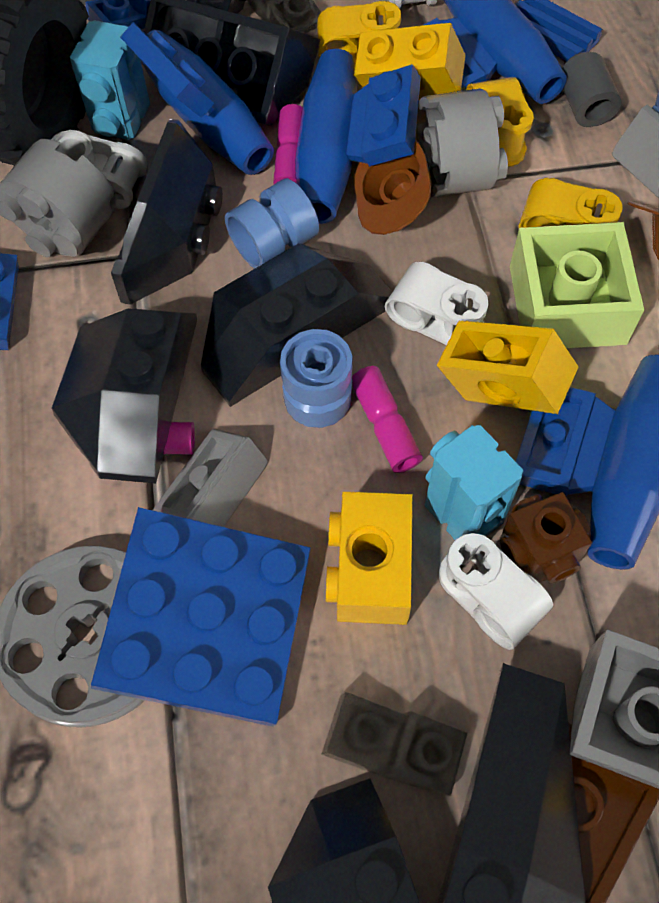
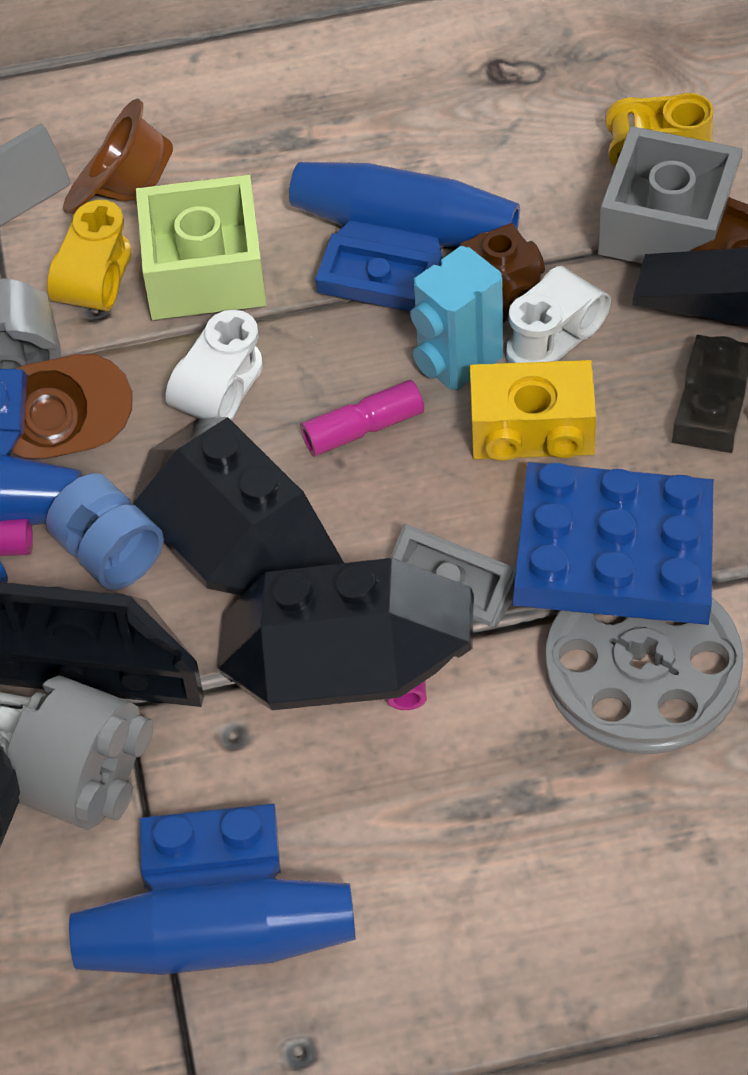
camera: 90 degrees left, 10 degrees down
(316, 377) = (329, 462): medium blue wheel -> none
(508, 365) = (314, 289): yellow brick -> none

